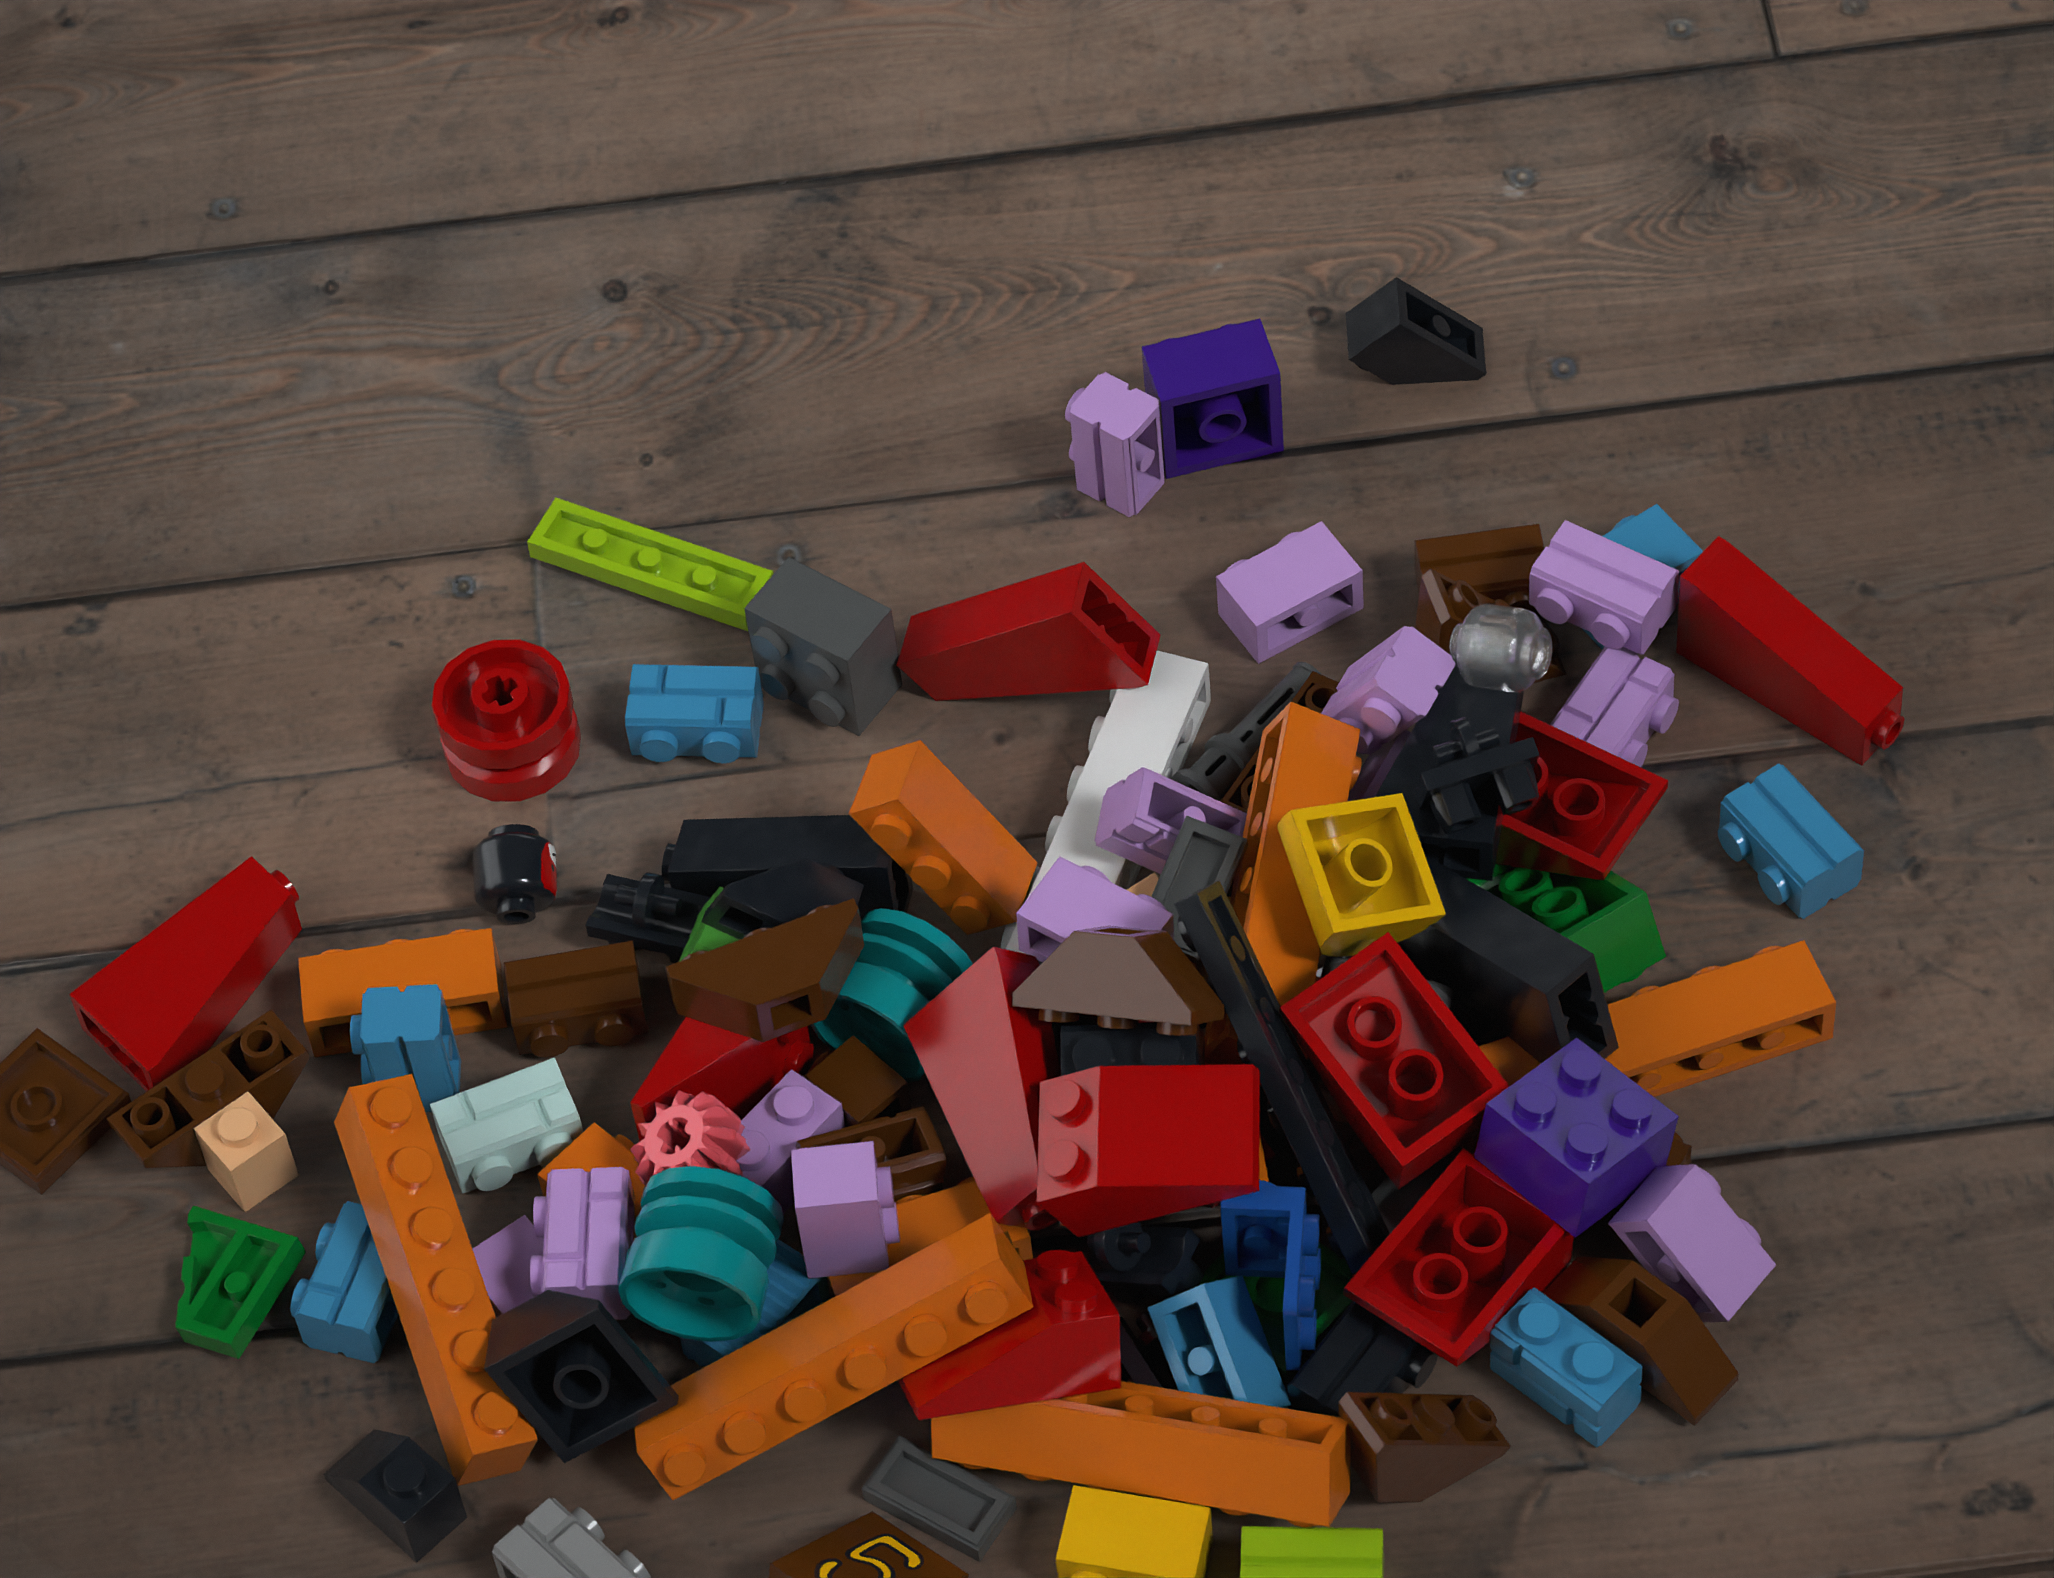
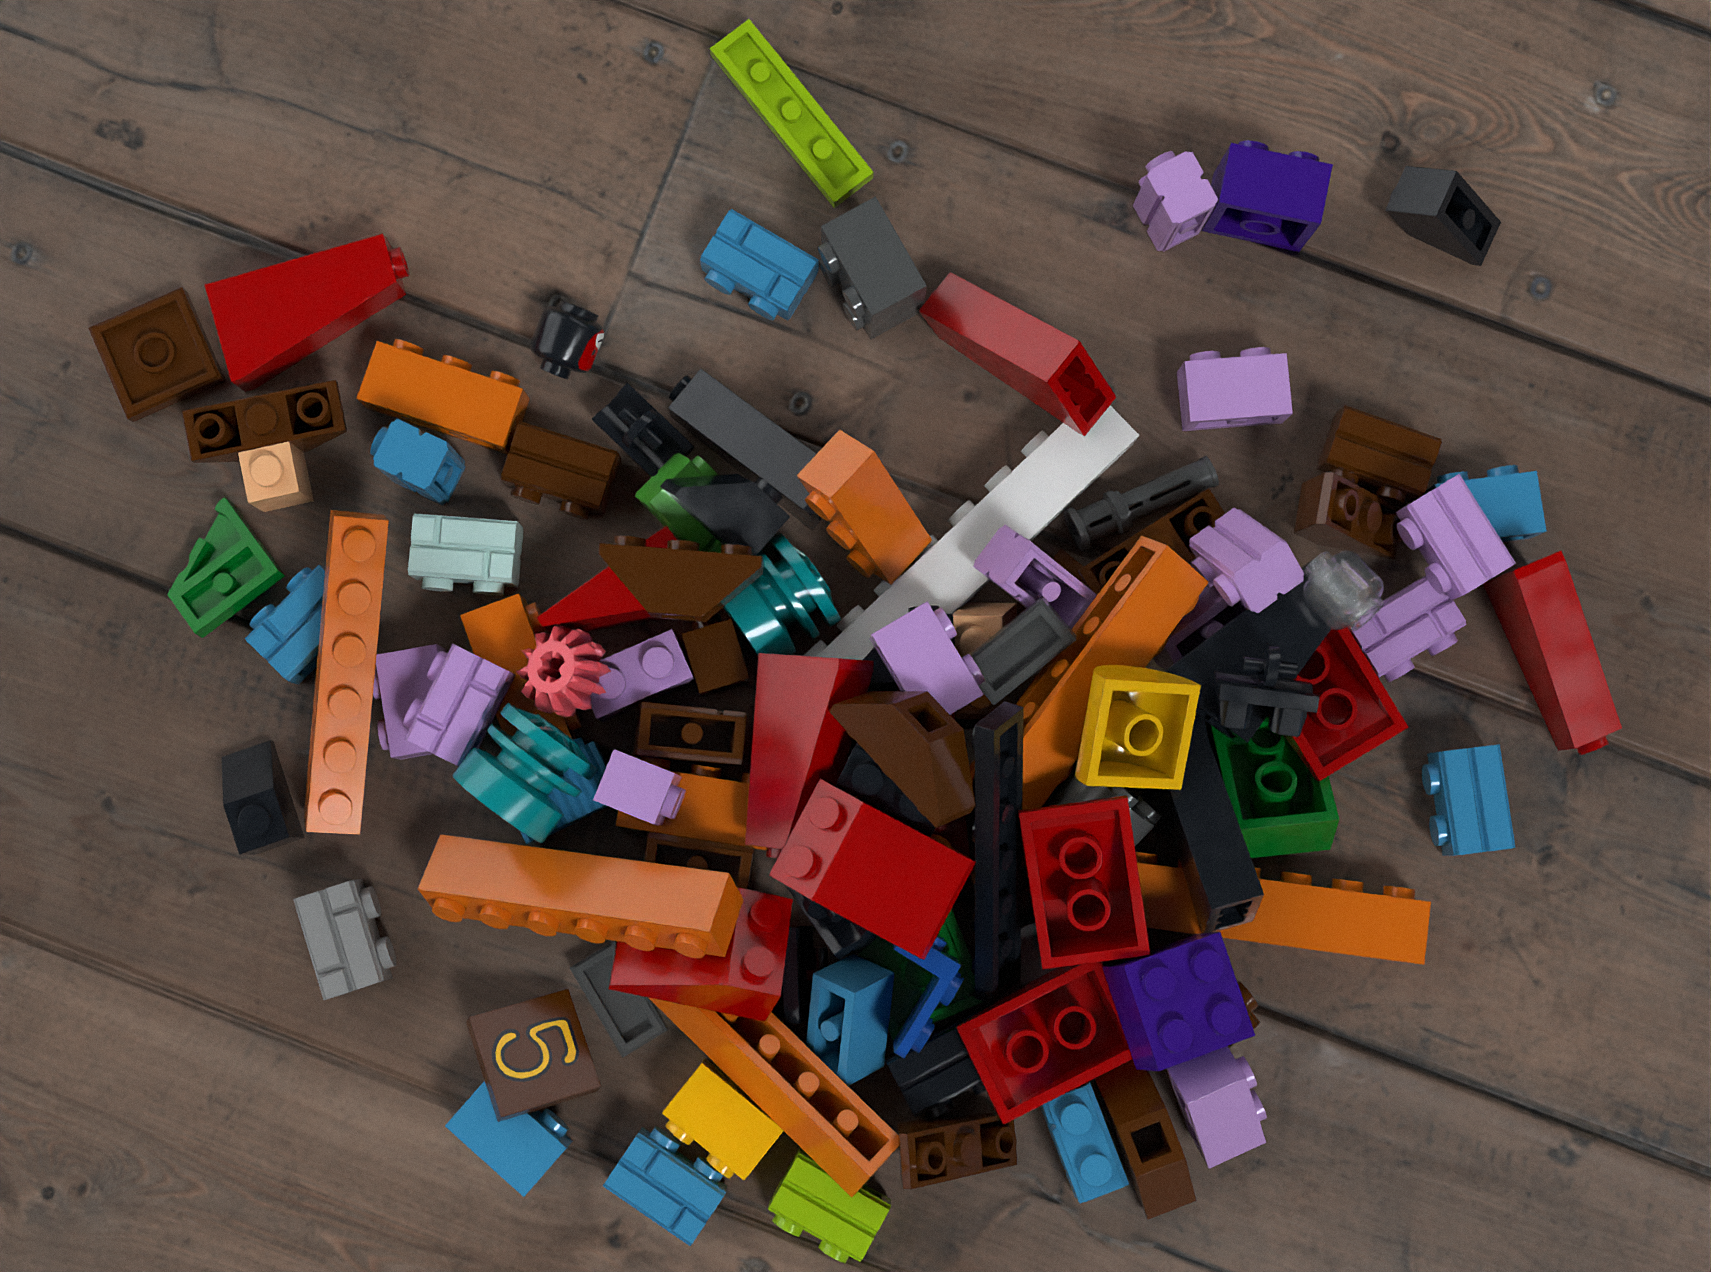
camera: 15 degrees right, 30 degrees up
(506, 720) = (612, 175): red wheel -> none
(573, 1372) = (399, 803): black slope -> none

